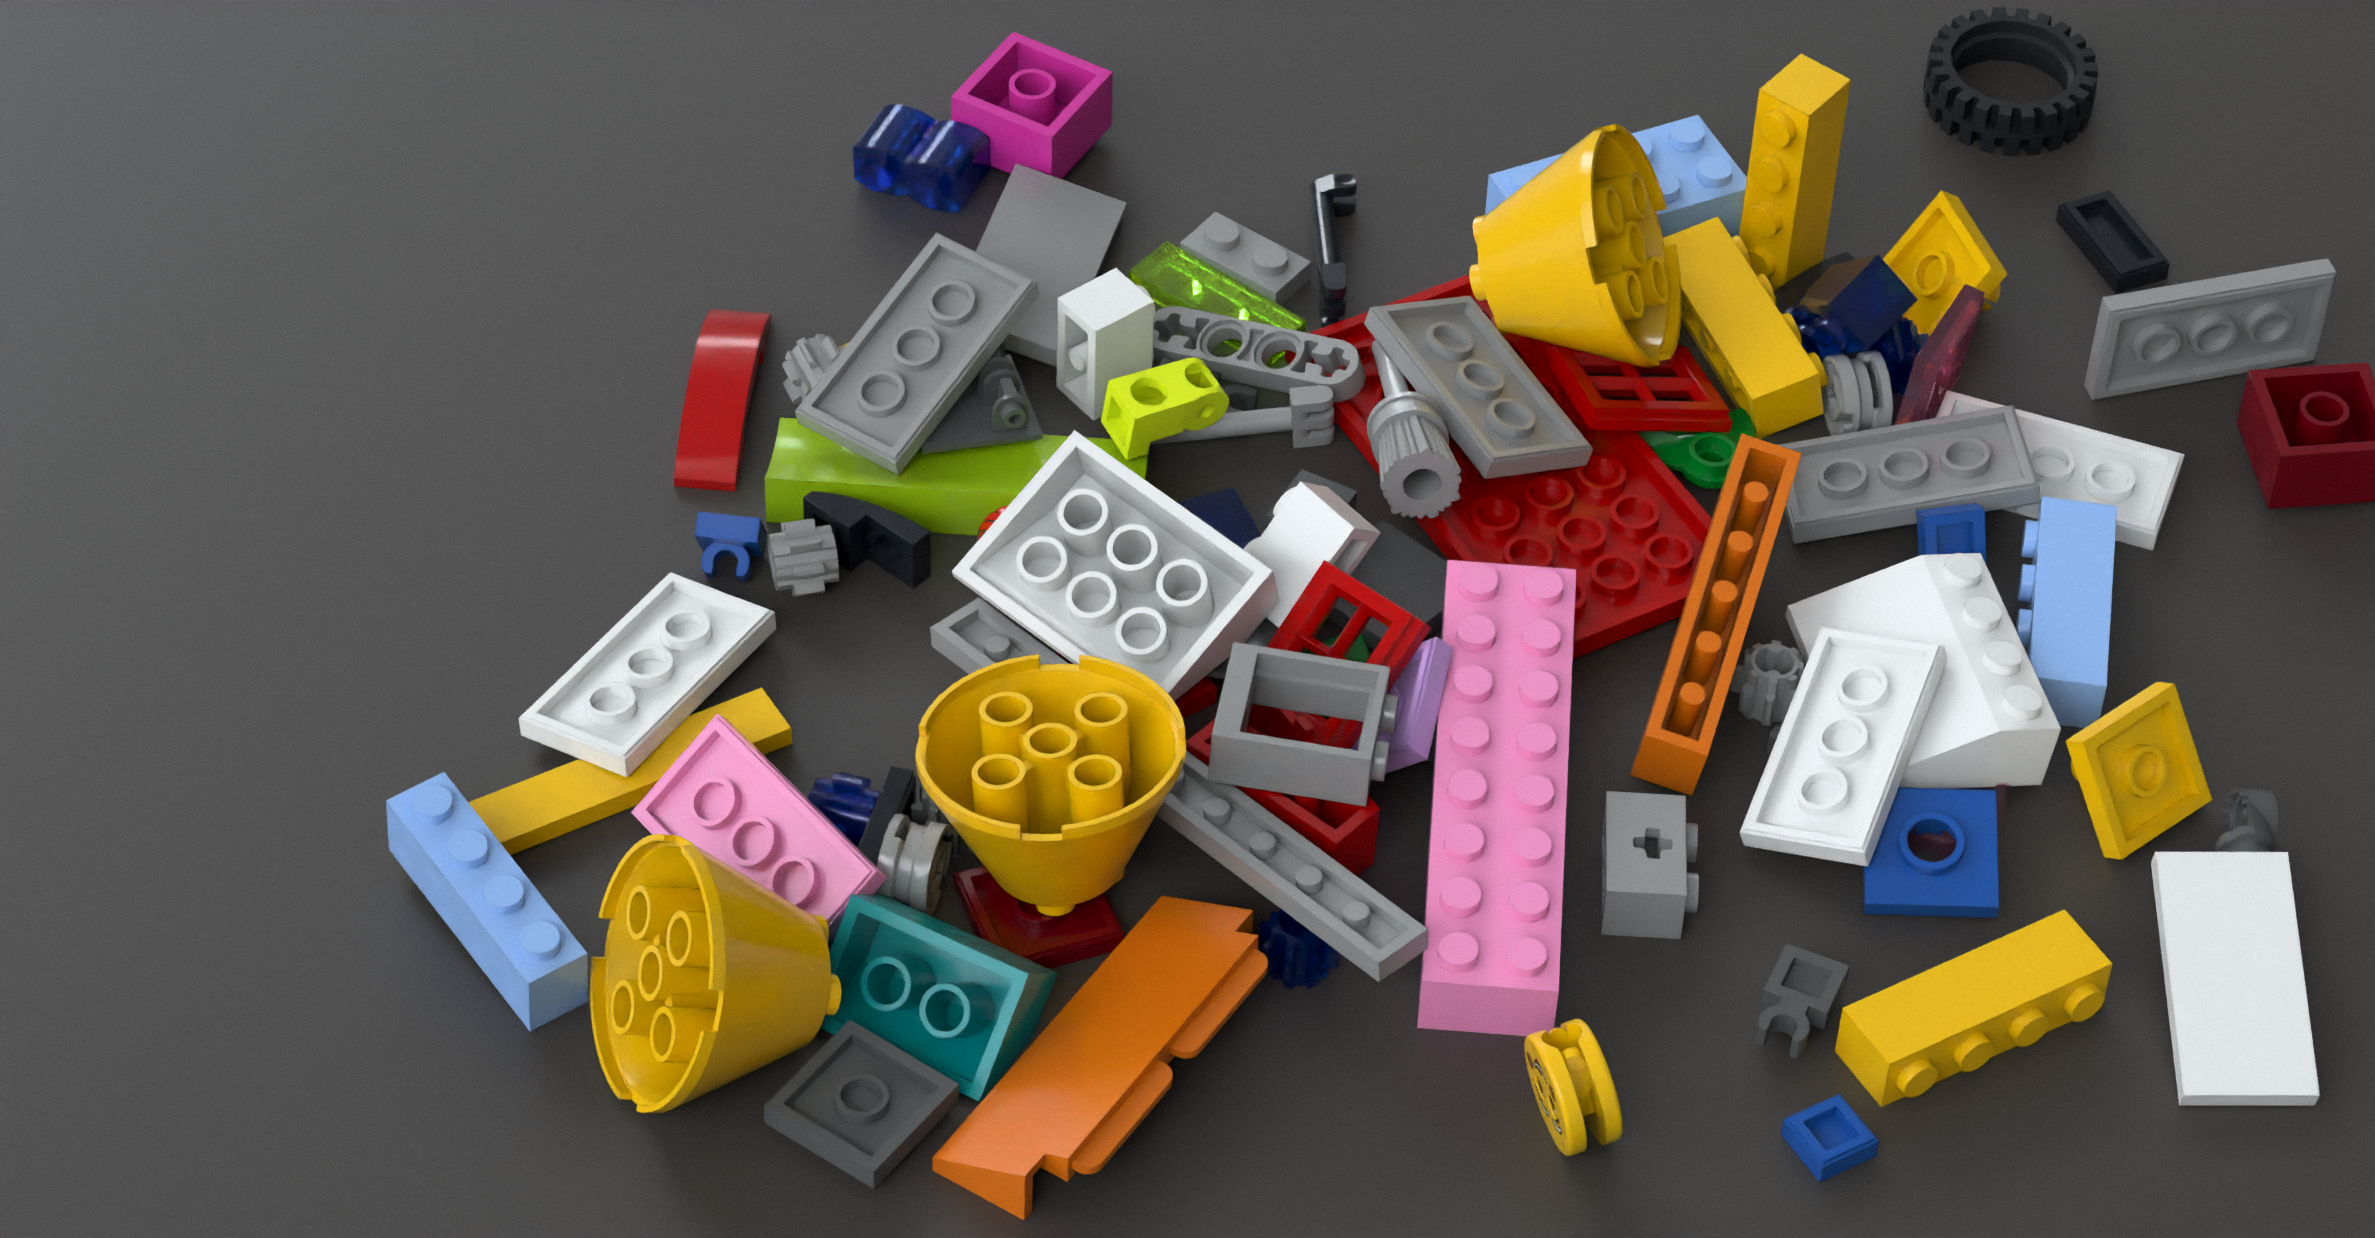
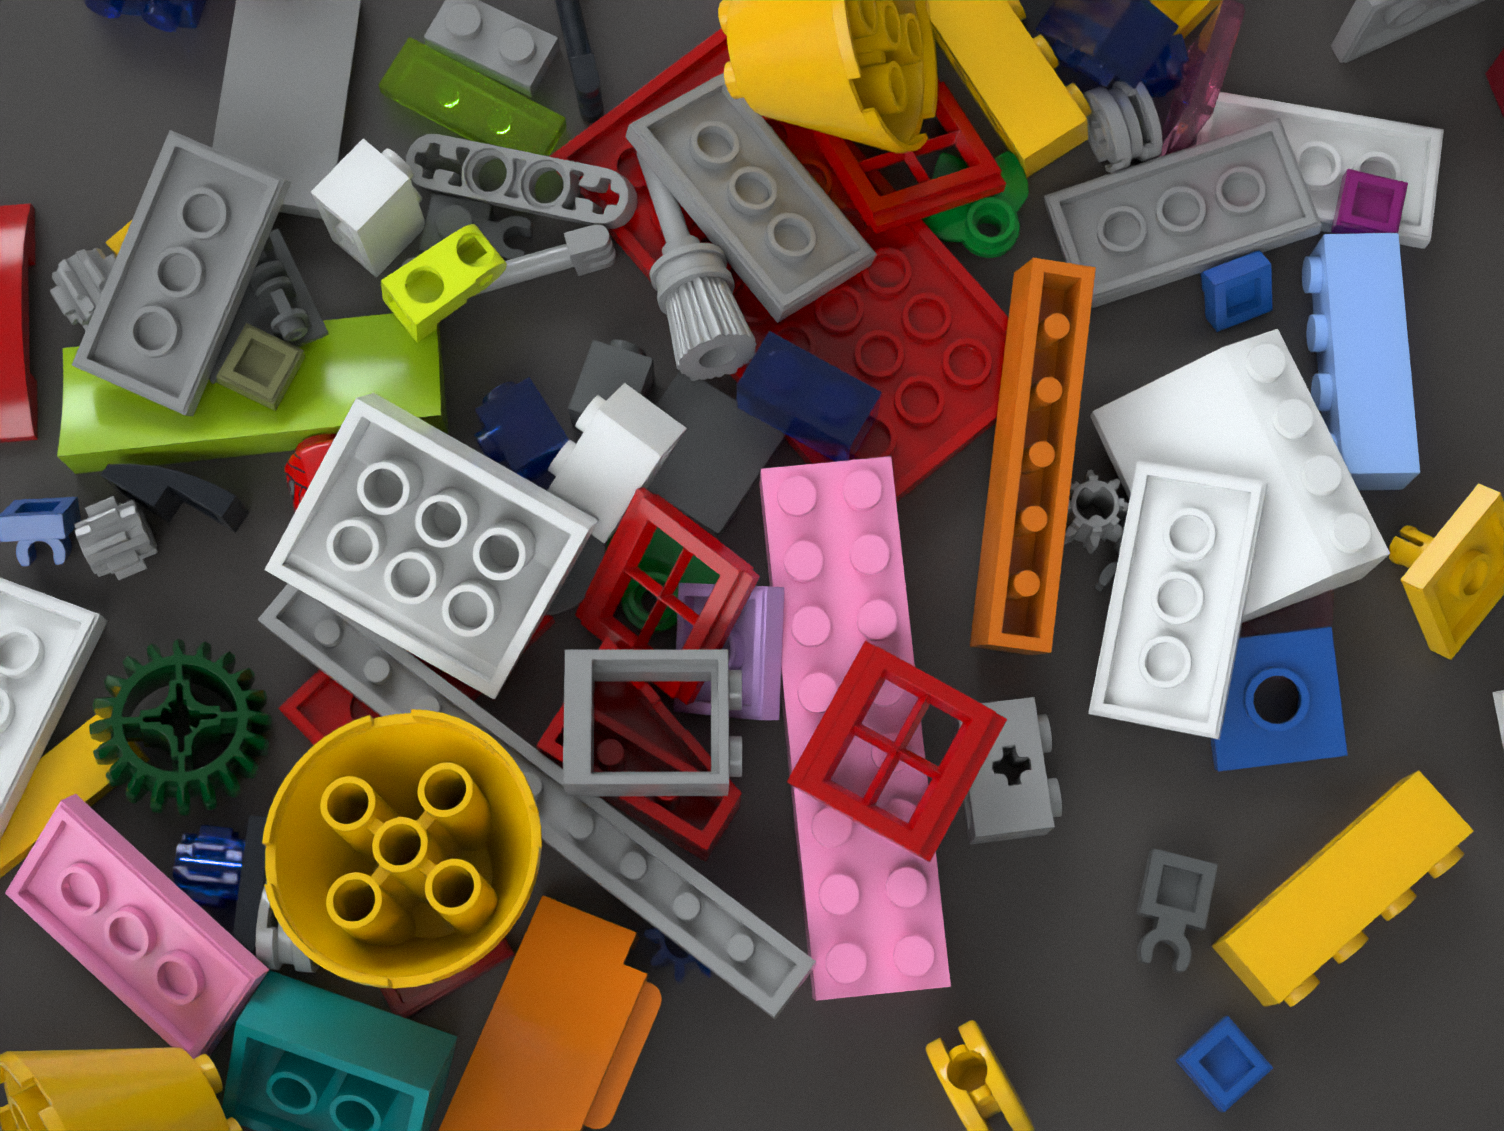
camera: 10 degrees left, 30 degrees up
(836, 700) = (156, 726): none -> dark green gear
(974, 442) = (260, 366): none -> olive tile
(1497, 523) = (807, 398): none -> clear blue brick
(1584, 816) = (949, 780): none -> red piece
(2099, 485) = (1368, 204): none -> magenta tile

